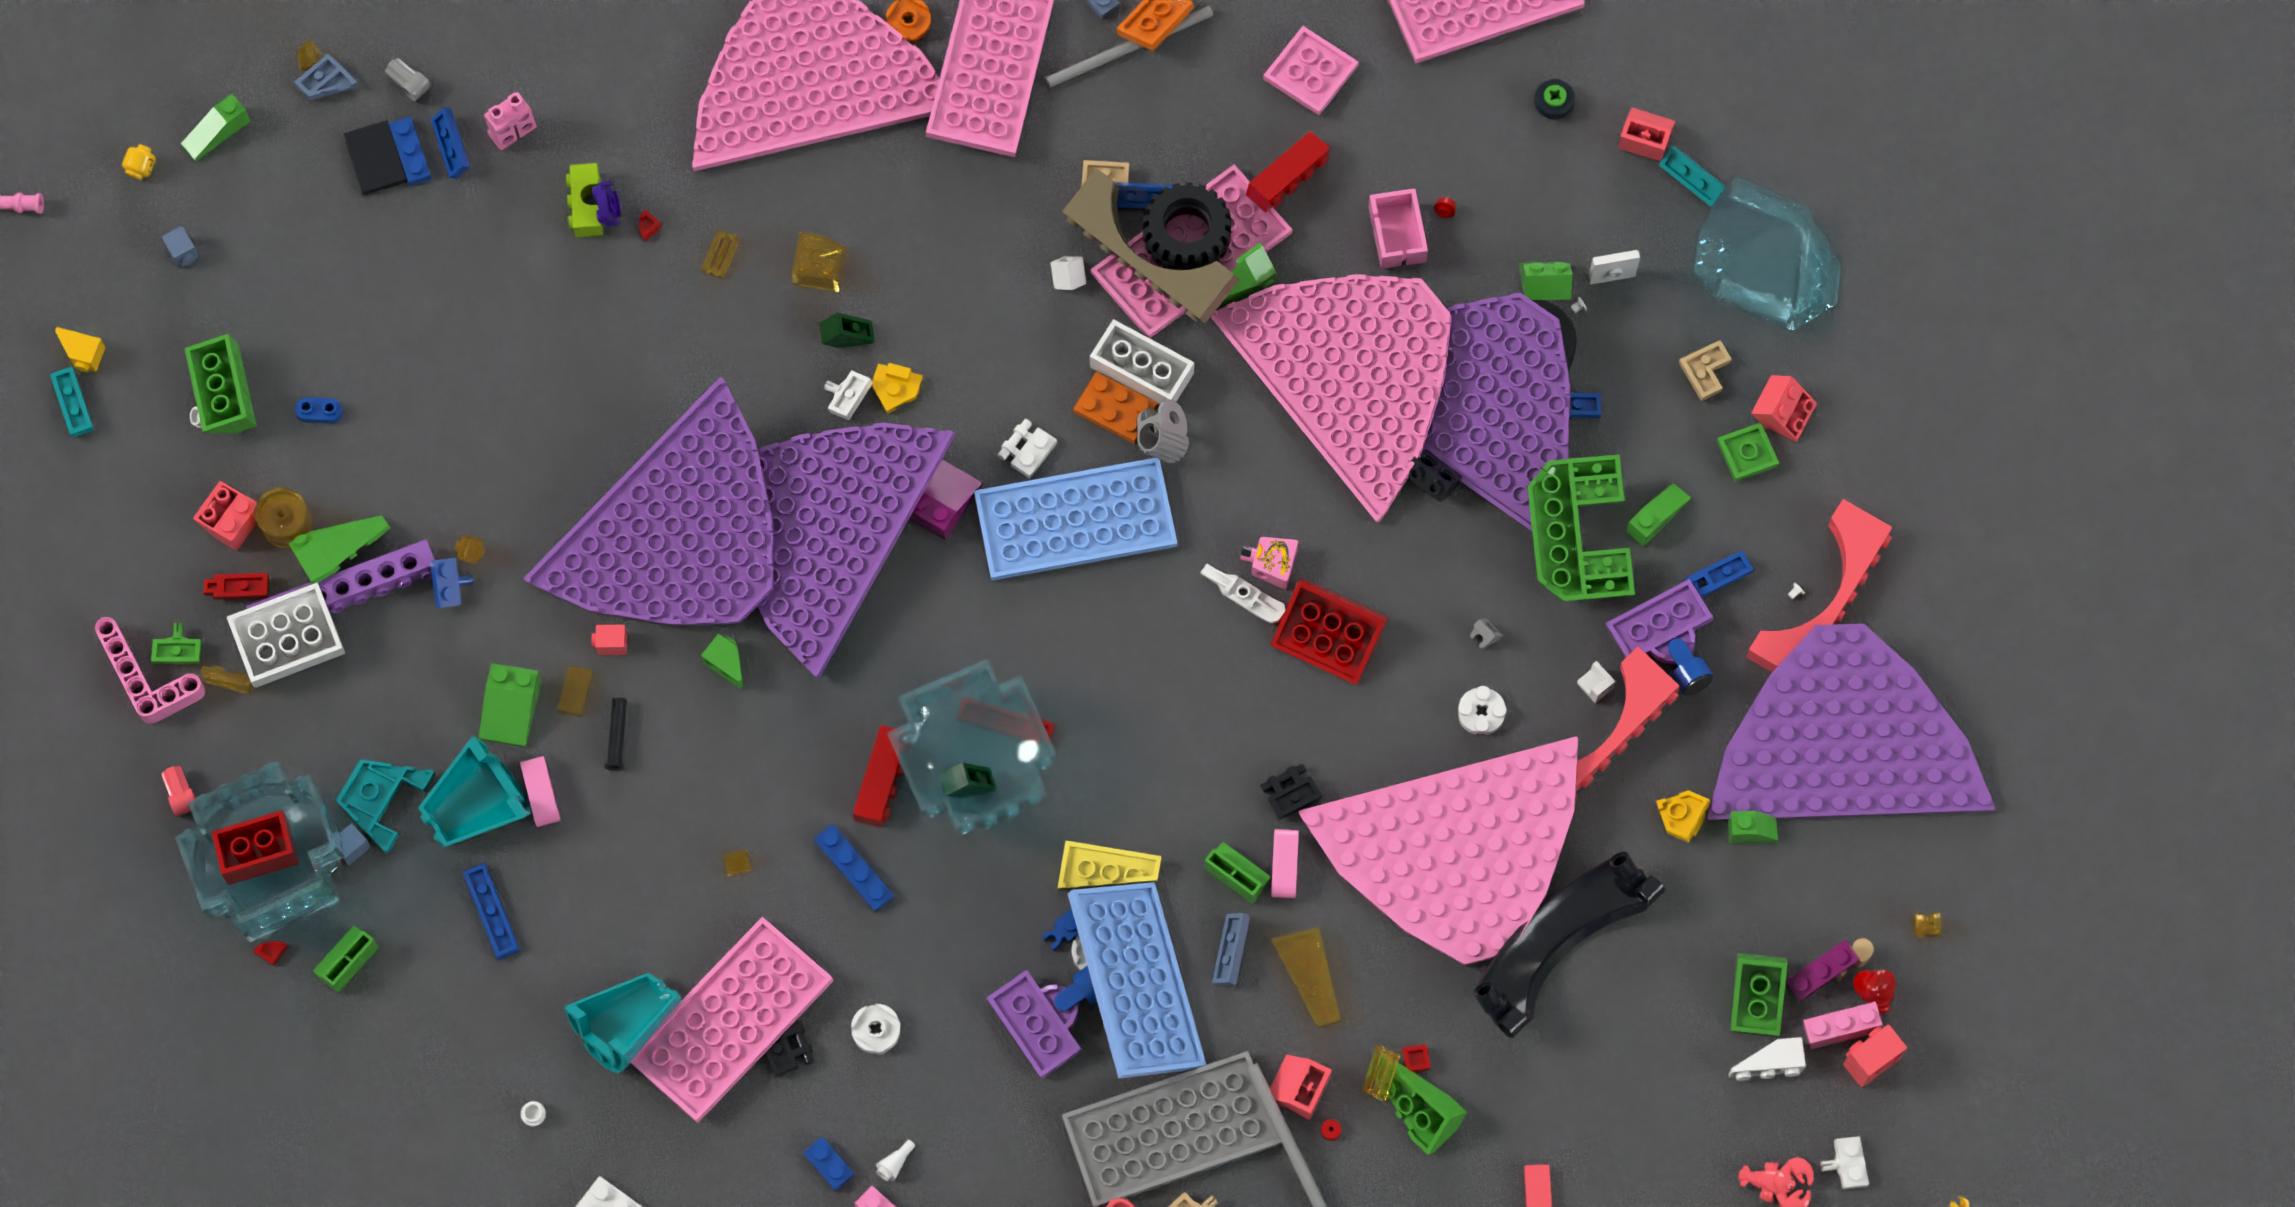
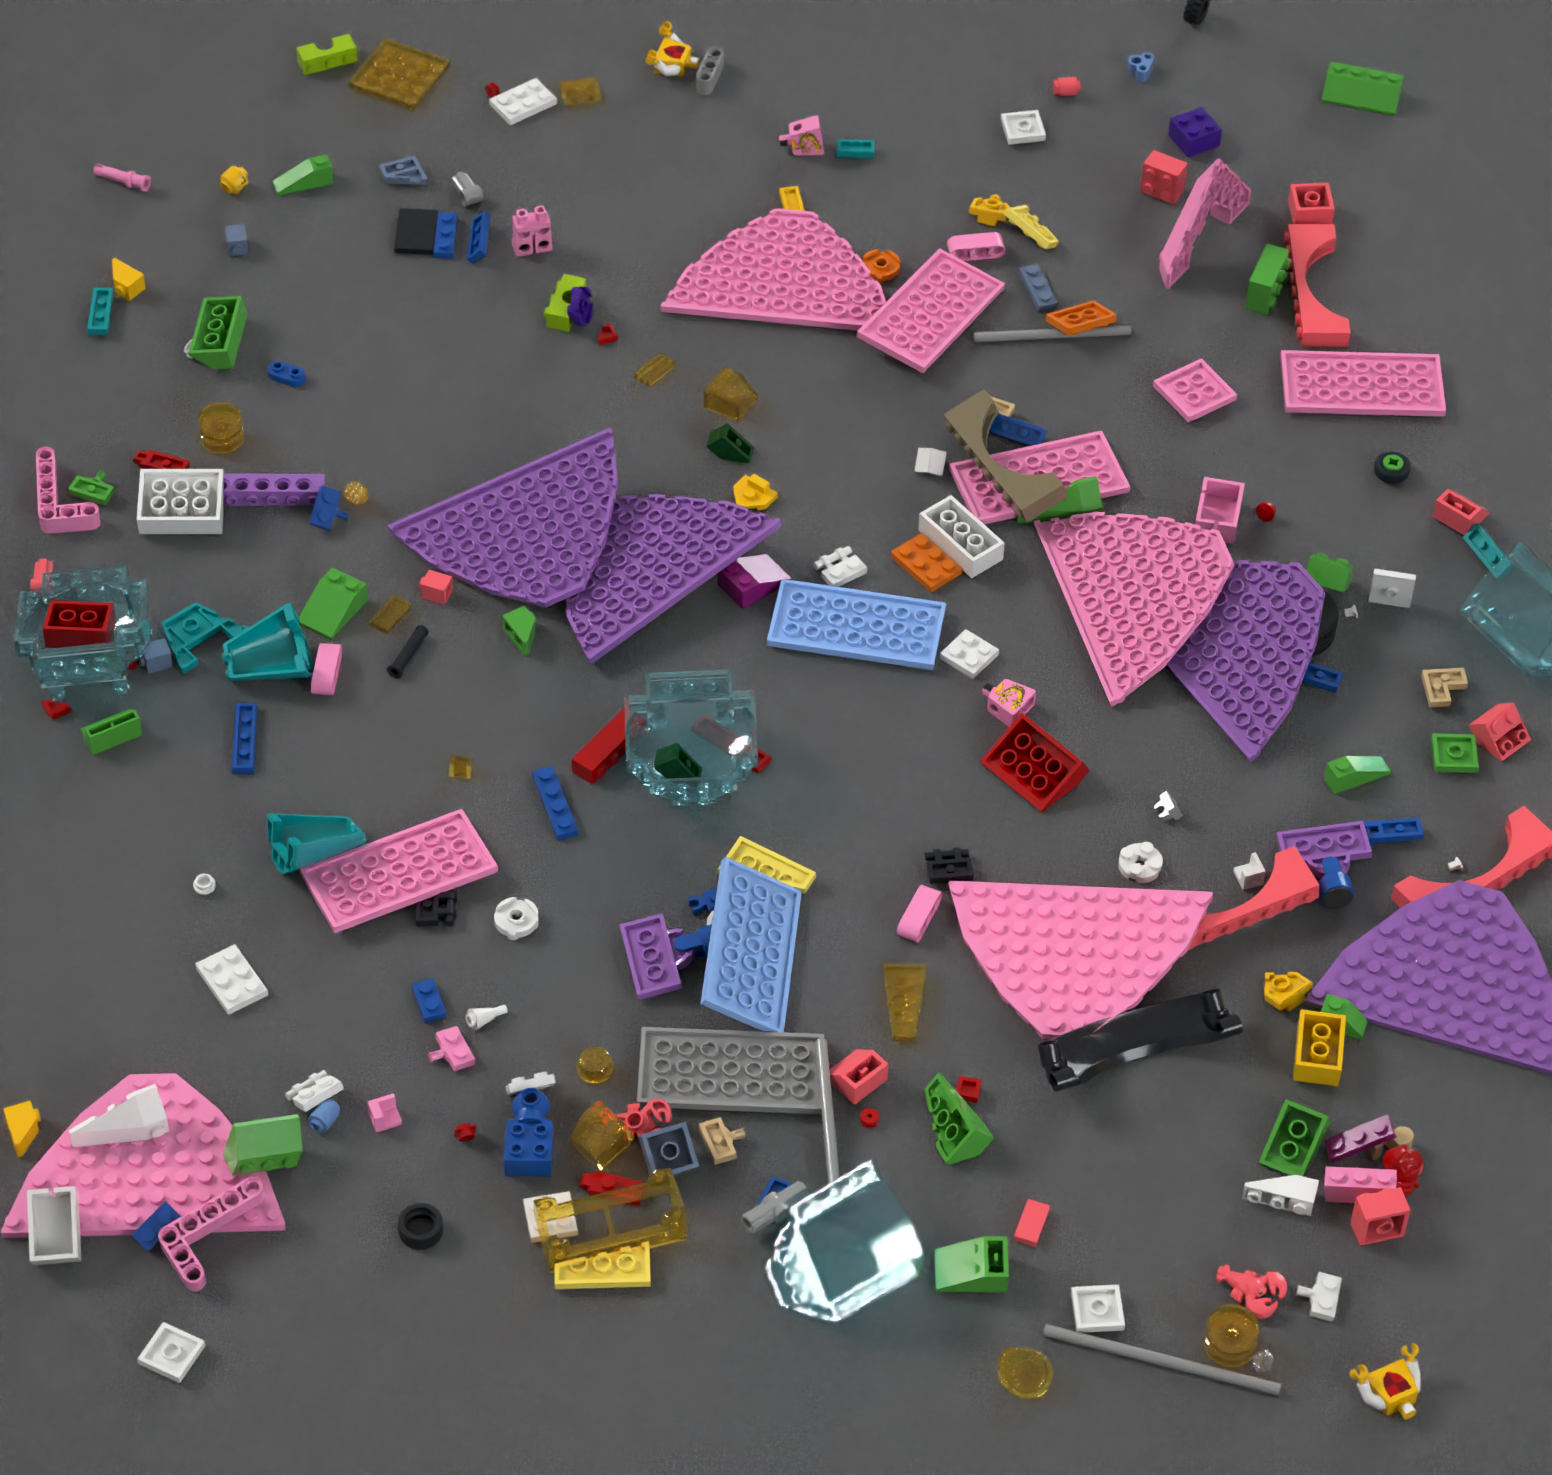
camera: 20 degrees right, 20 degrees down
(227, 515) = (177, 415): coral slope -> none
(235, 681) = (116, 517): clear yellow plate -> none
(307, 55) = (399, 152): clear yellow slope -> none
(324, 549) = (237, 456): bright green wedge -> none
(848, 394) = (712, 486): white plate -> none
(1032, 1178) = (595, 1065): none -> clear yellow piece
(1169, 439) = (959, 589): light grey piece -> none
(1183, 201) = (1043, 435): black tyre -> none
(1206, 511) = (969, 654): none -> white plate
(1231, 949) = (844, 958): sand blue plate -> none
(1236, 872) = (874, 906): bright green piece -> none
(1254, 601) = (980, 727): white piece -> none
(1288, 171) = (1143, 446): red brick -> none
(1384, 1074) = (931, 1085): clear yellow tile -> none
(1434, 476) = (1172, 684): black brick -> none
(1557, 535) = (1261, 746): bright green slope -> none
(1744, 876) = (1319, 1048): none -> yellow brick
(1927, 924) = (1471, 1139): clear yellow wheel -> none

